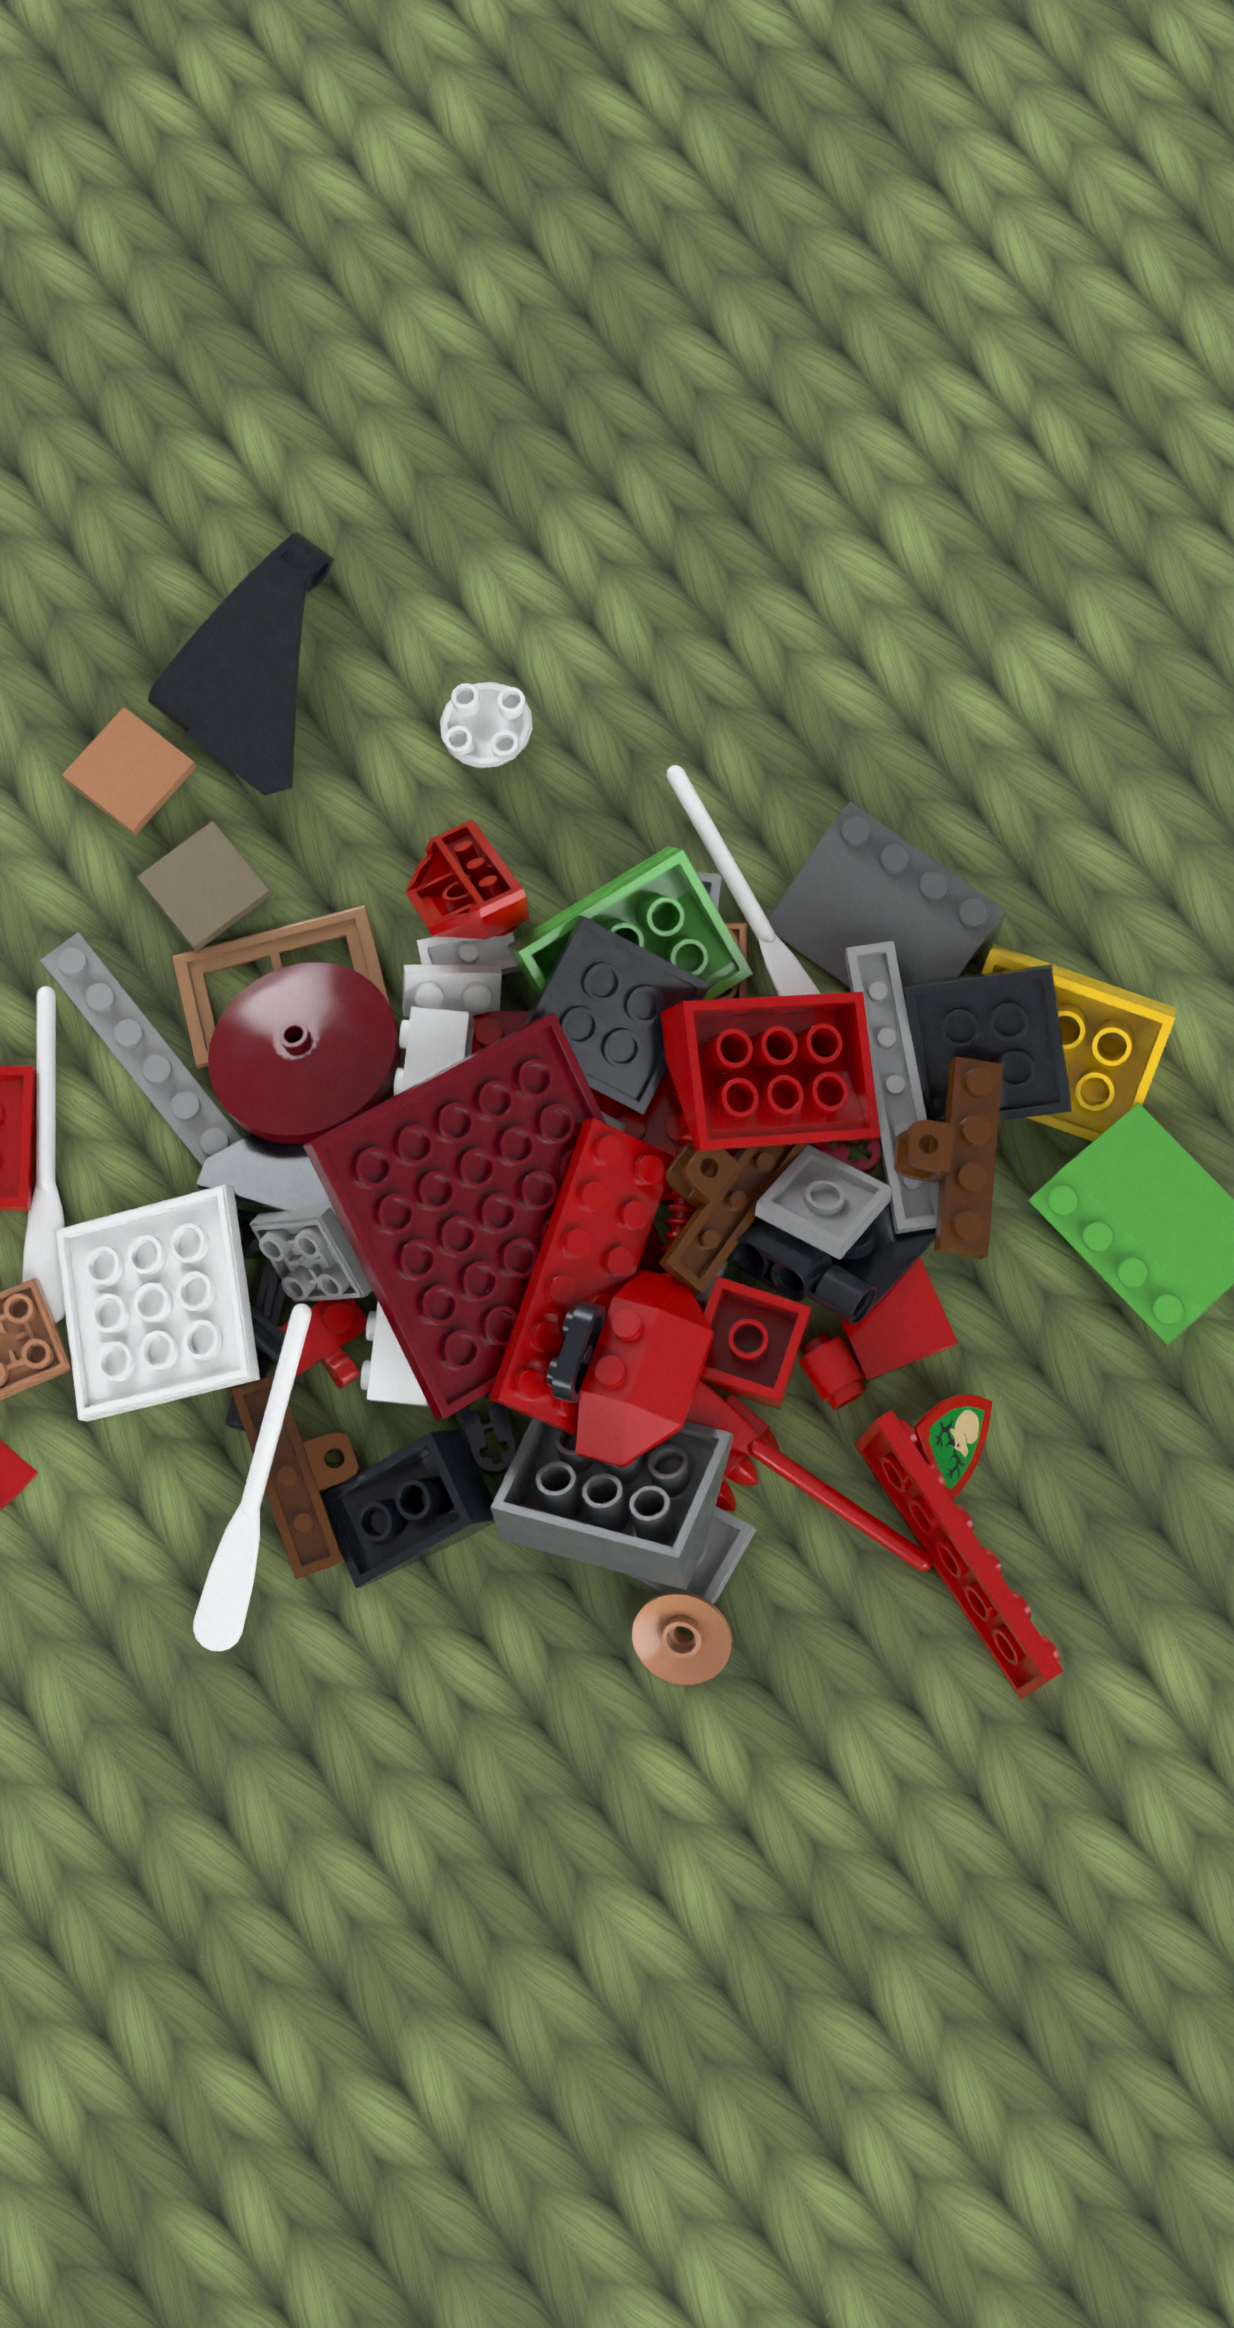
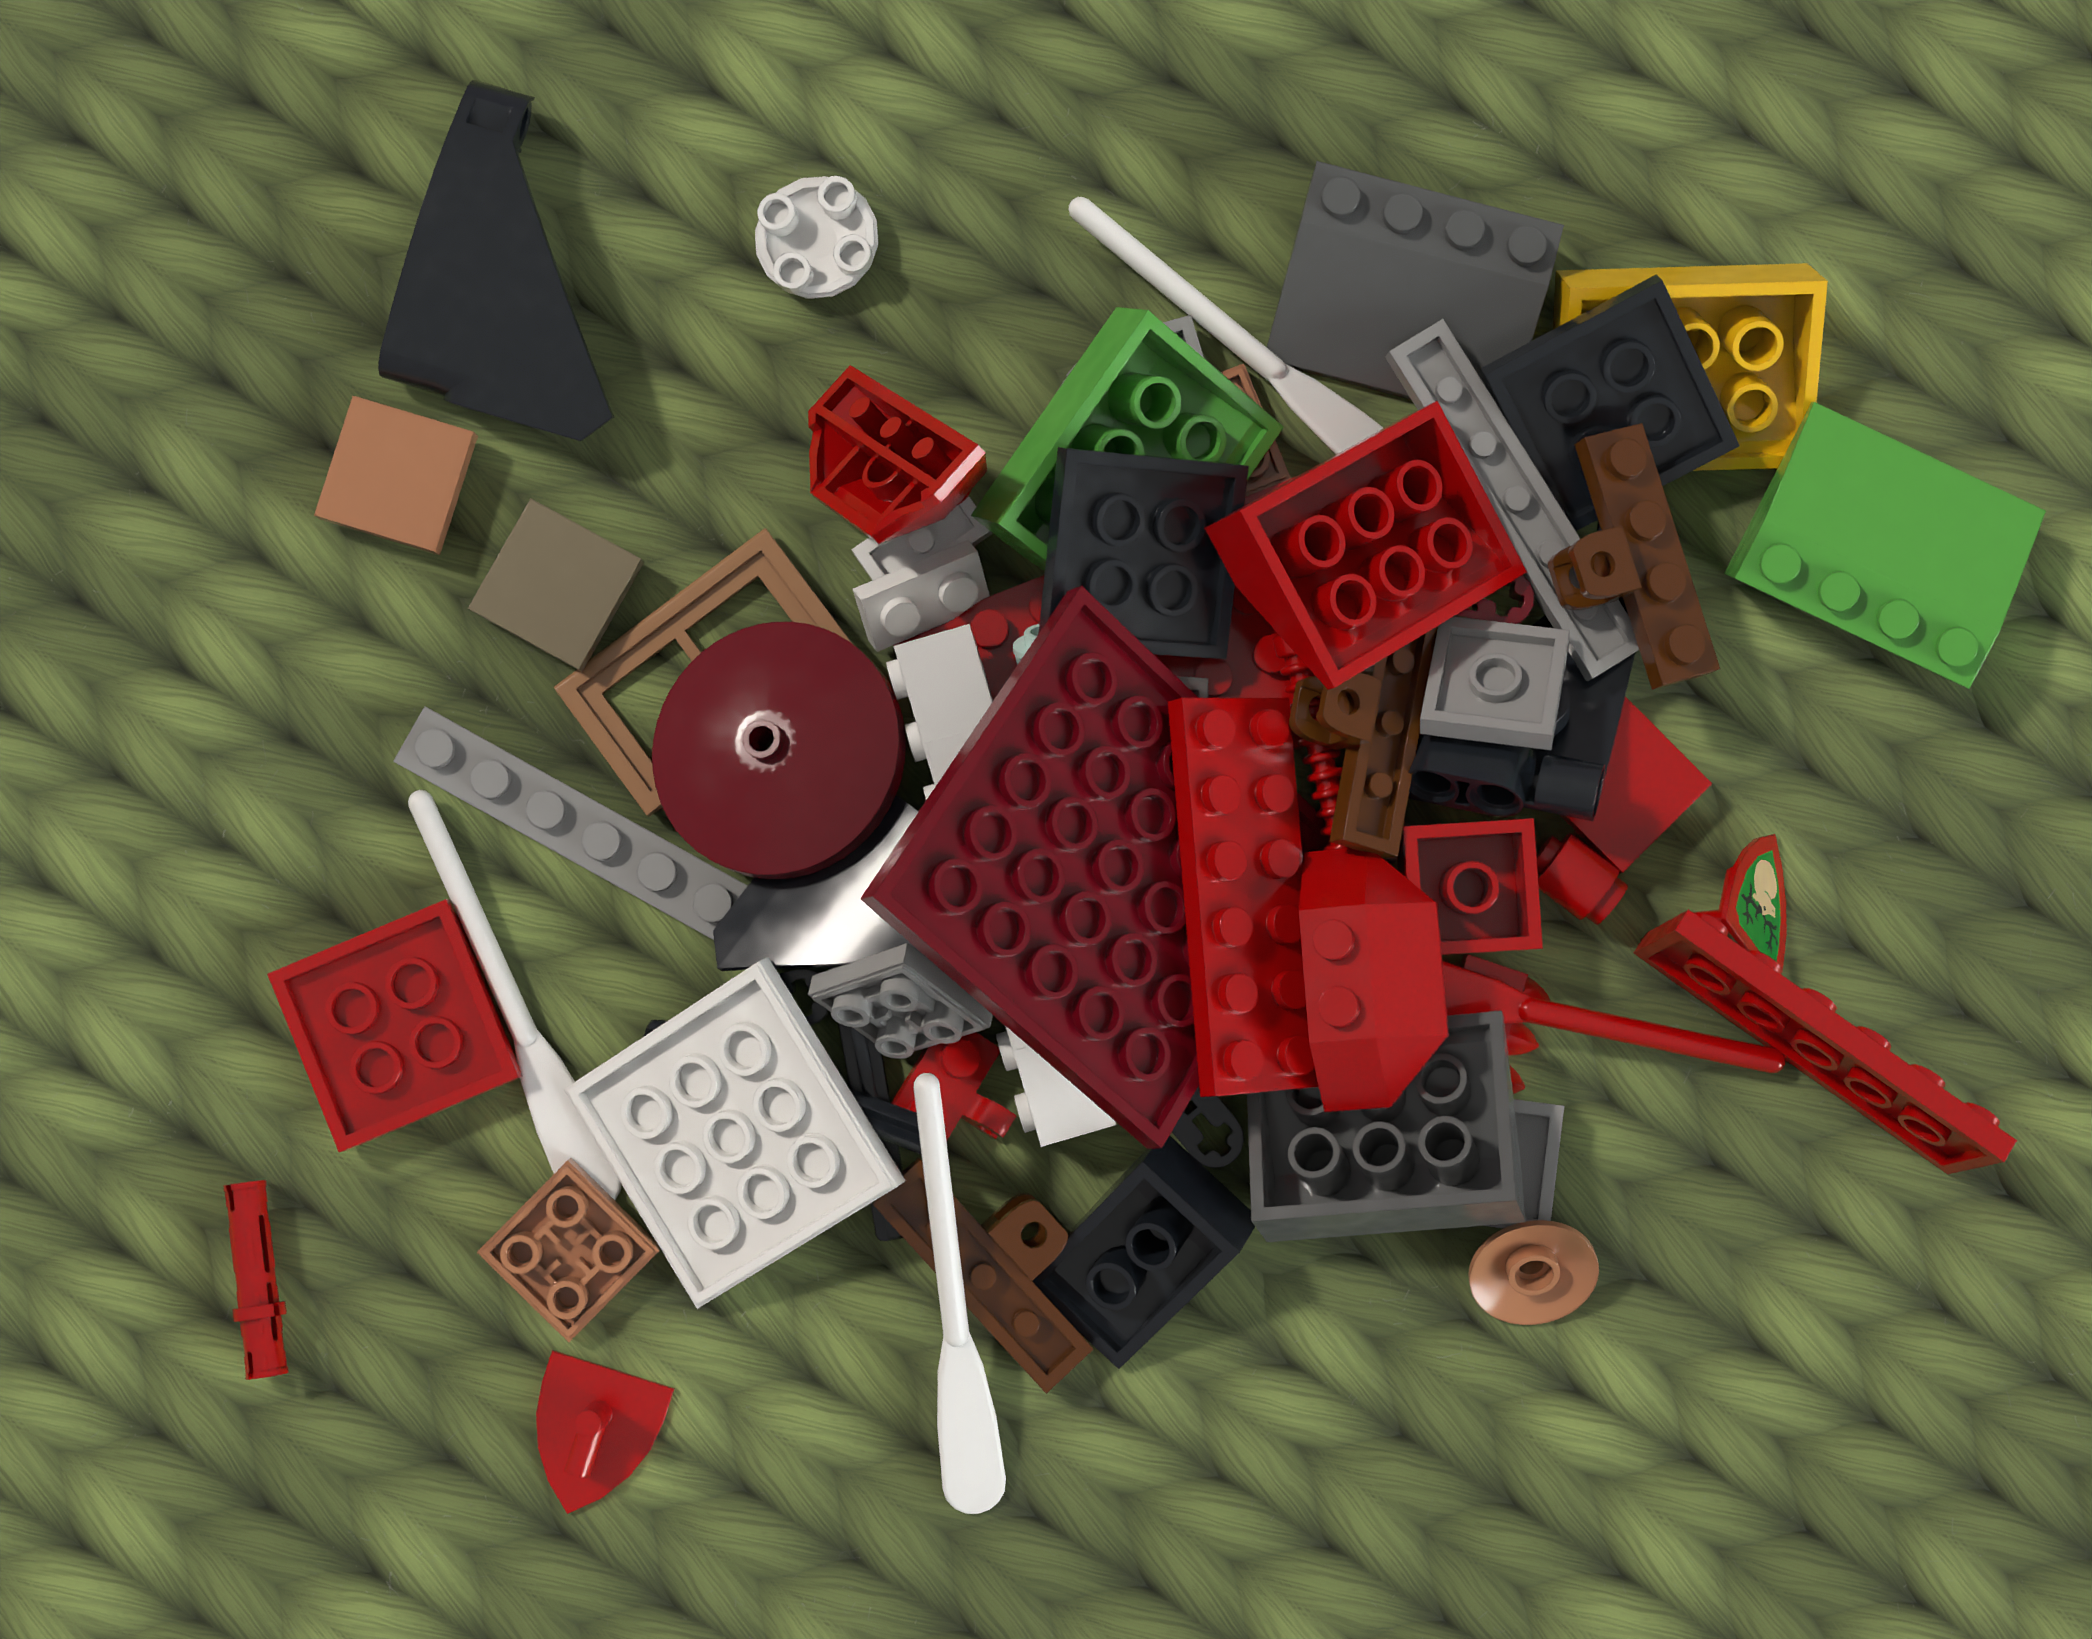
camera: 30 degrees left, 10 degrees up
(581, 1335) = (1282, 969): black plate -> none

